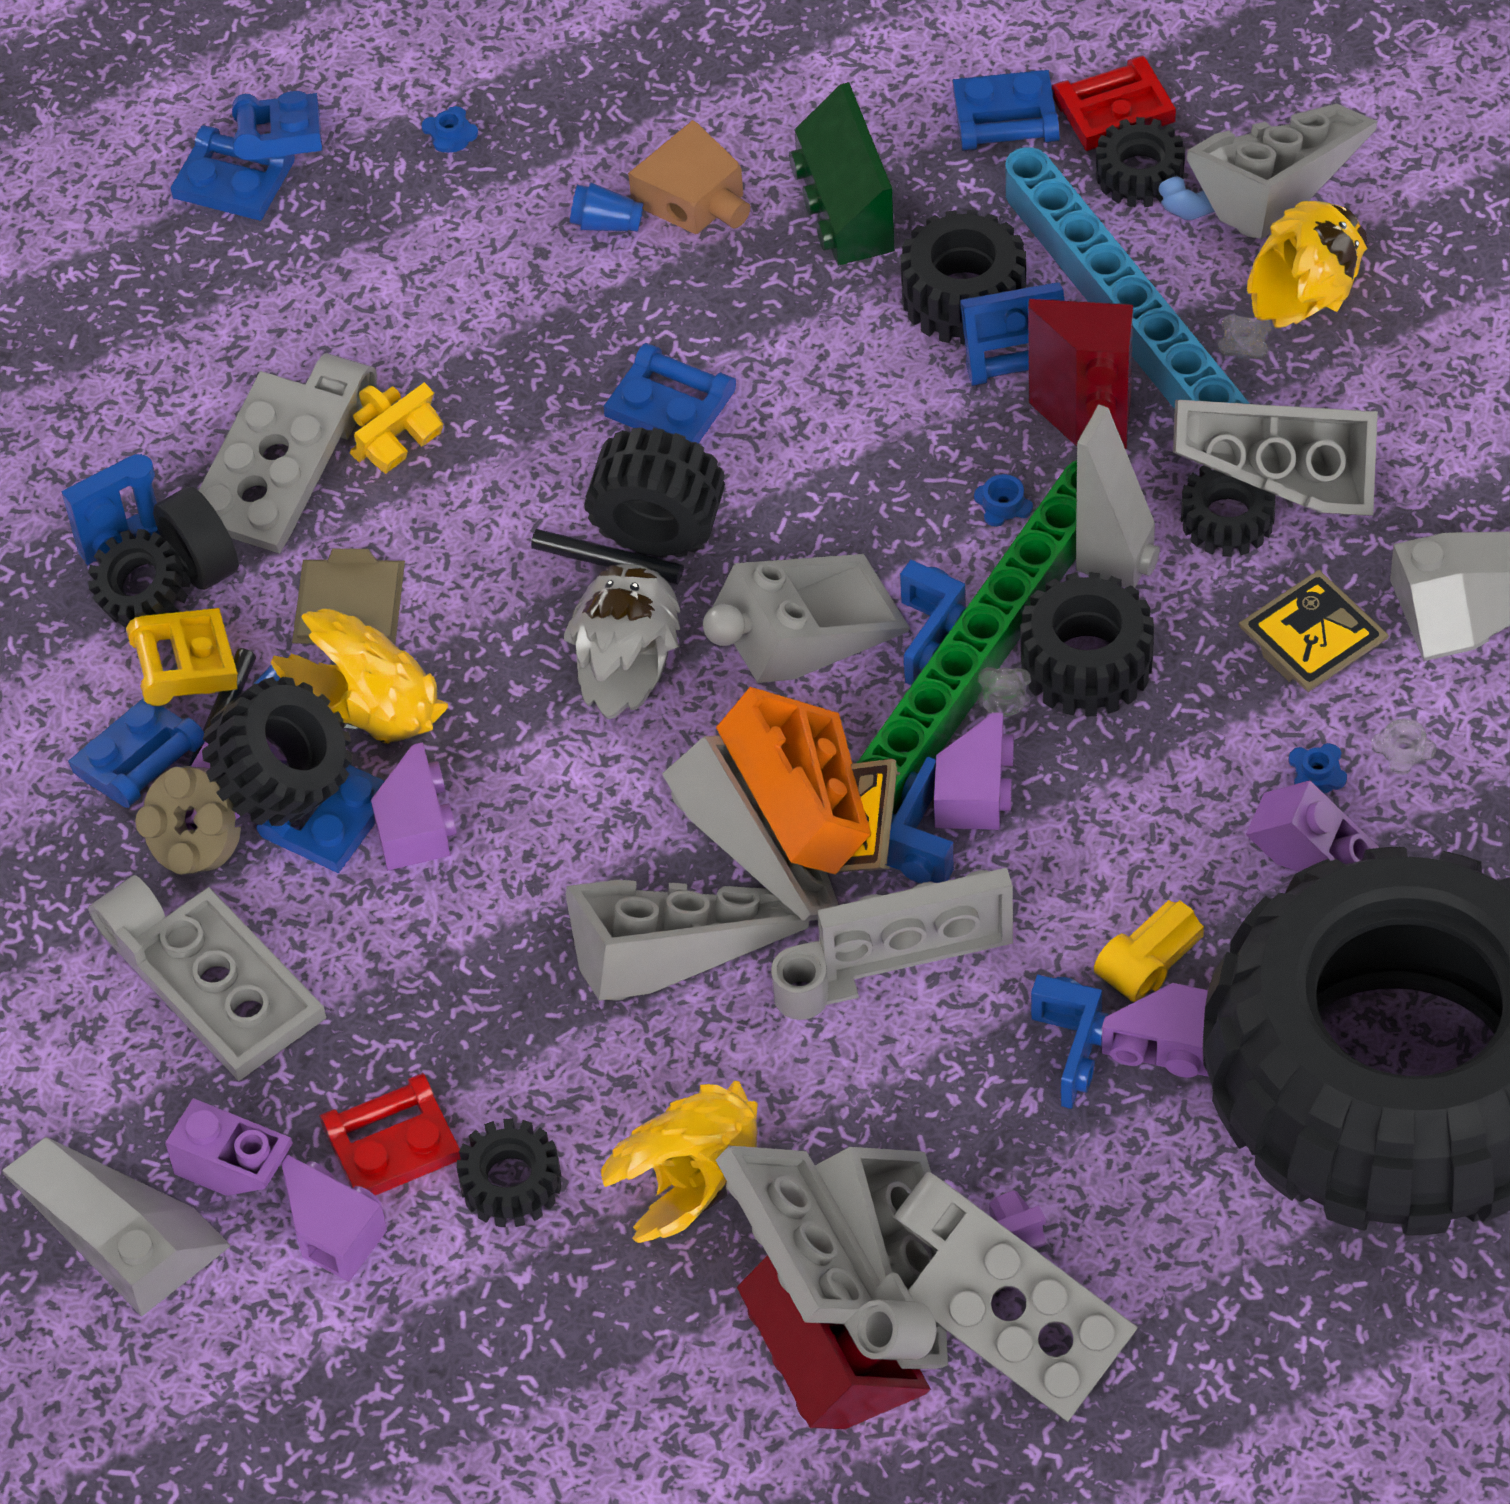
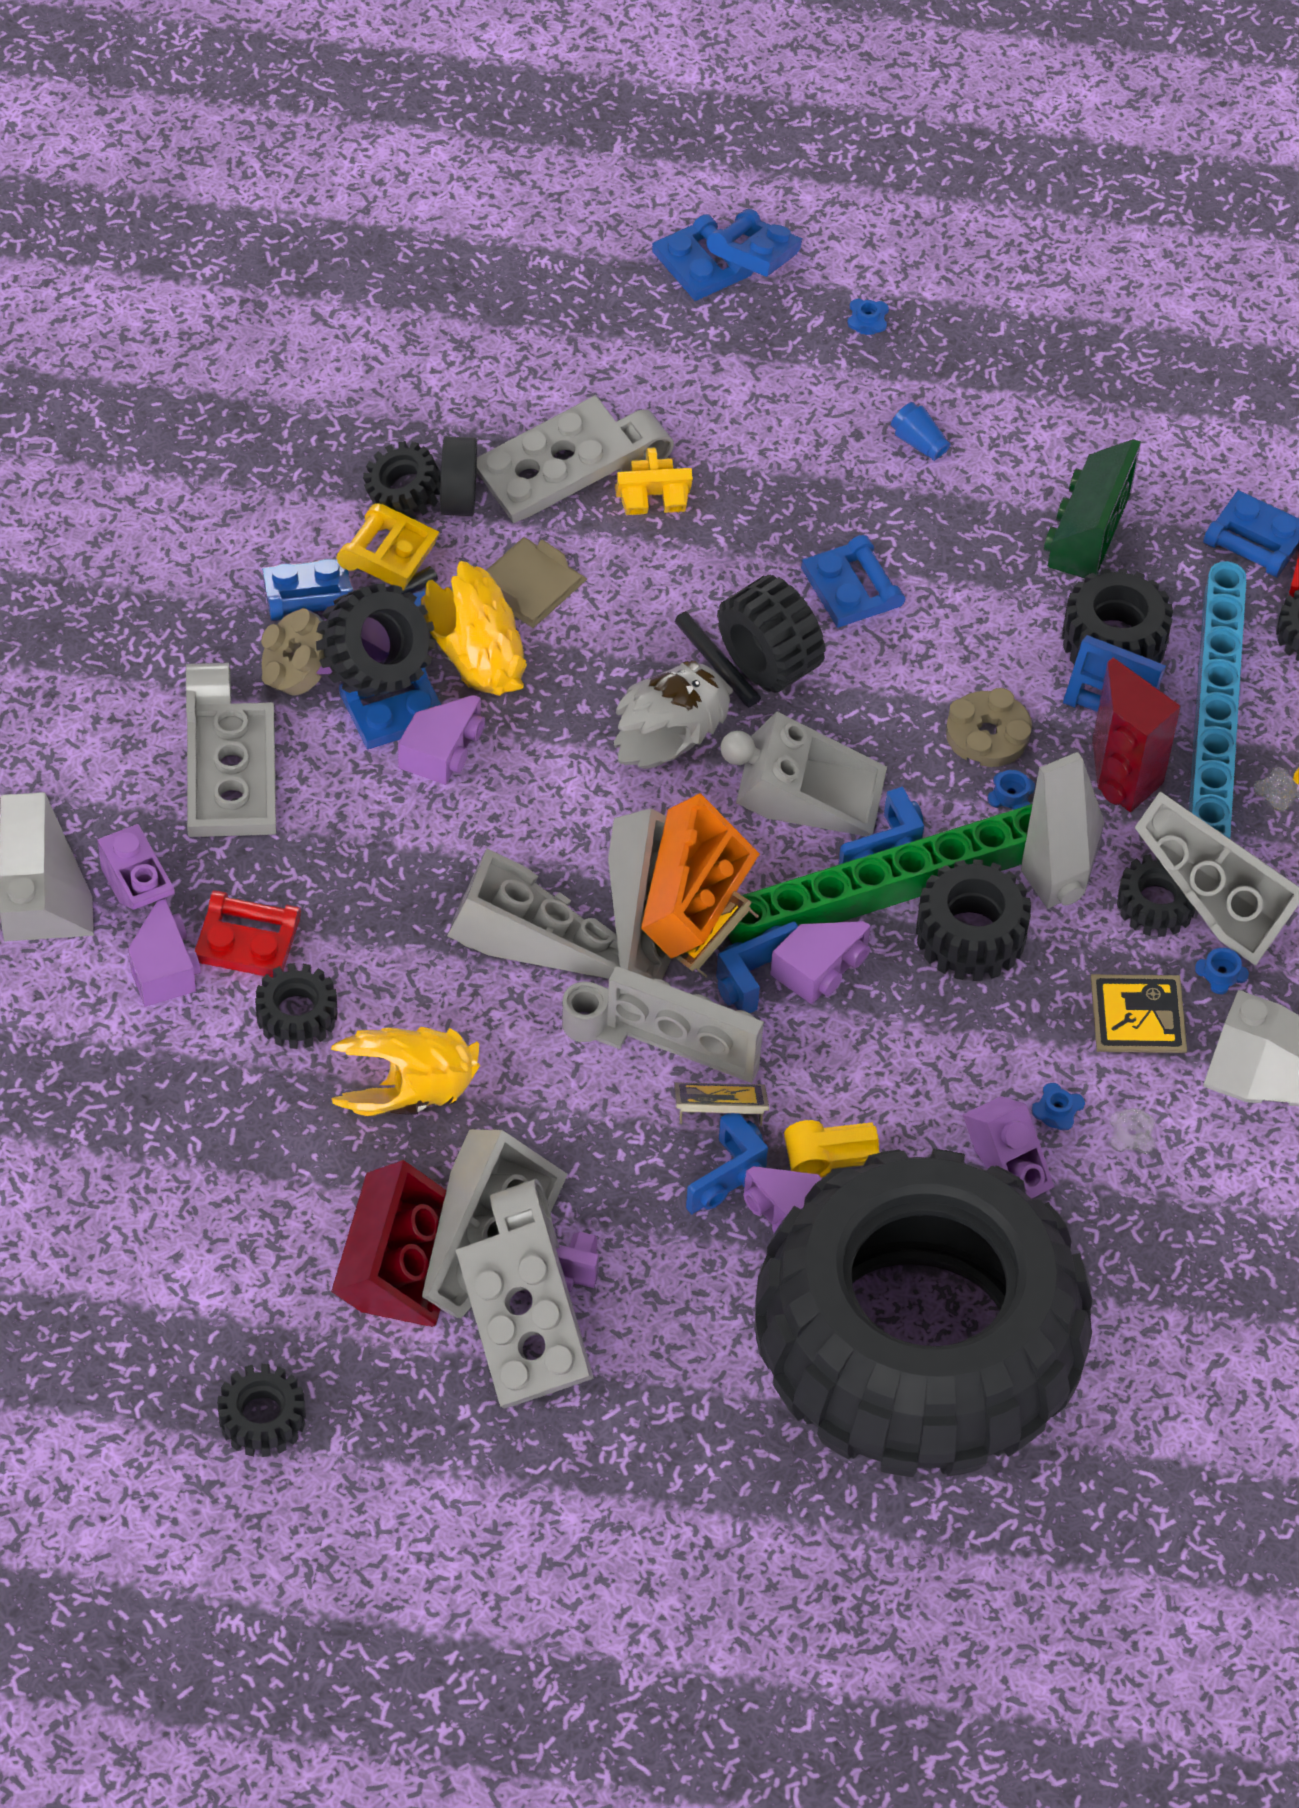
camera: 30 degrees right, 0 degrees up
(97, 507) = (410, 418): blue plate -> none
(691, 182) = (992, 447): medium nougat torso -> none
(820, 1256) = (419, 1212): light grey hinge -> none
(922, 429) = (991, 707): none -> dark tan plate
(1004, 690) = (892, 915): clear plate -> none
(1008, 976) = (721, 1098): none -> piece
(1346, 527) = (1222, 959): none -> blue plate

